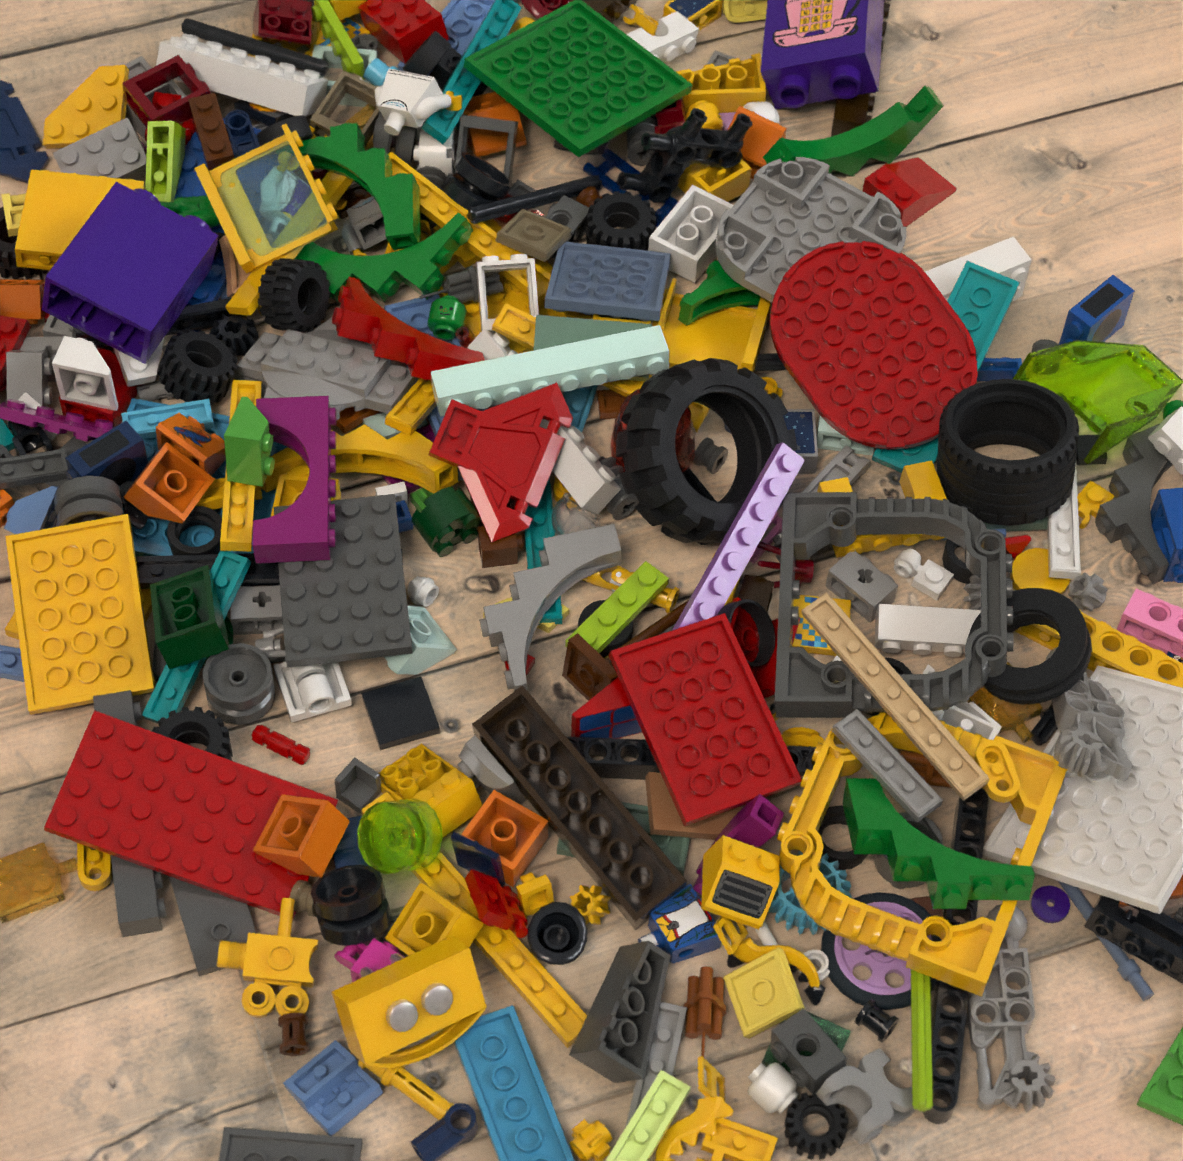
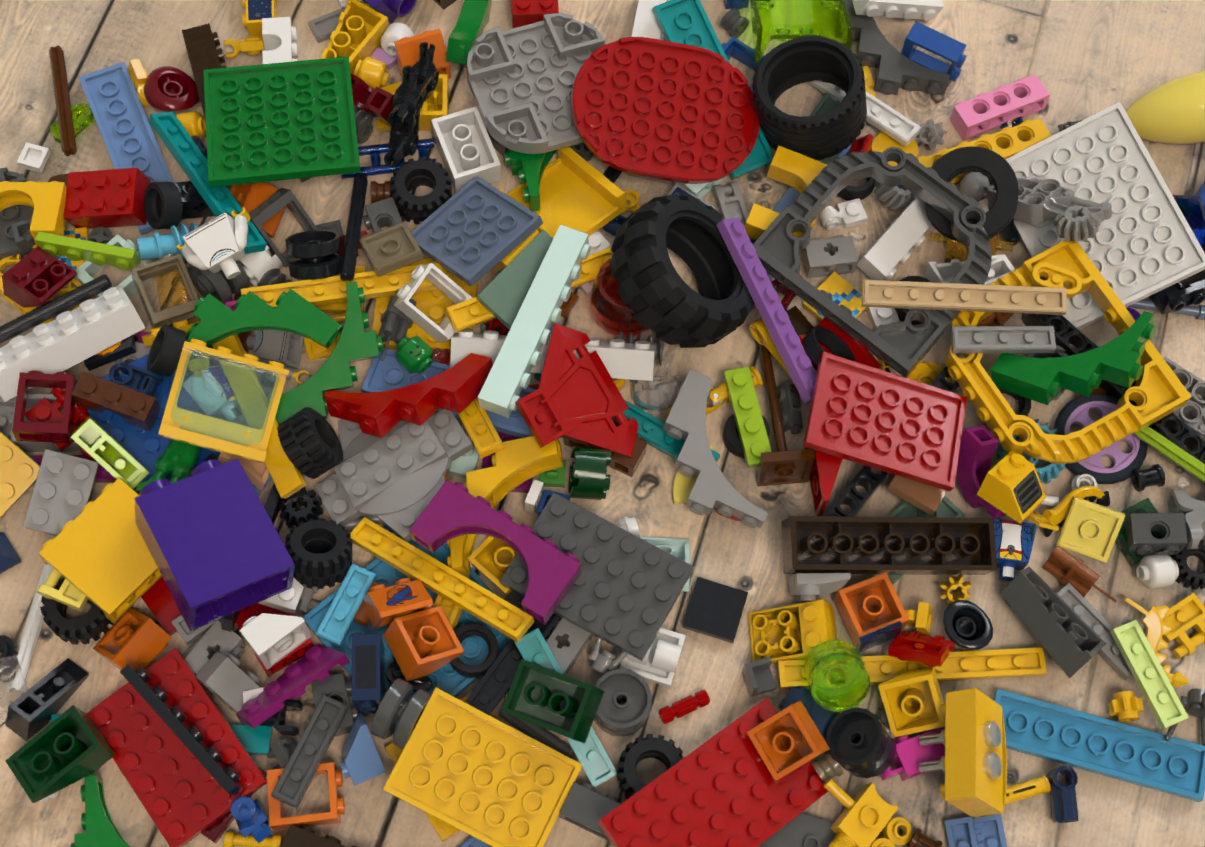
camera: 55 degrees left, 10 degrees up
(248, 446) = (447, 561): bright green slope -> none

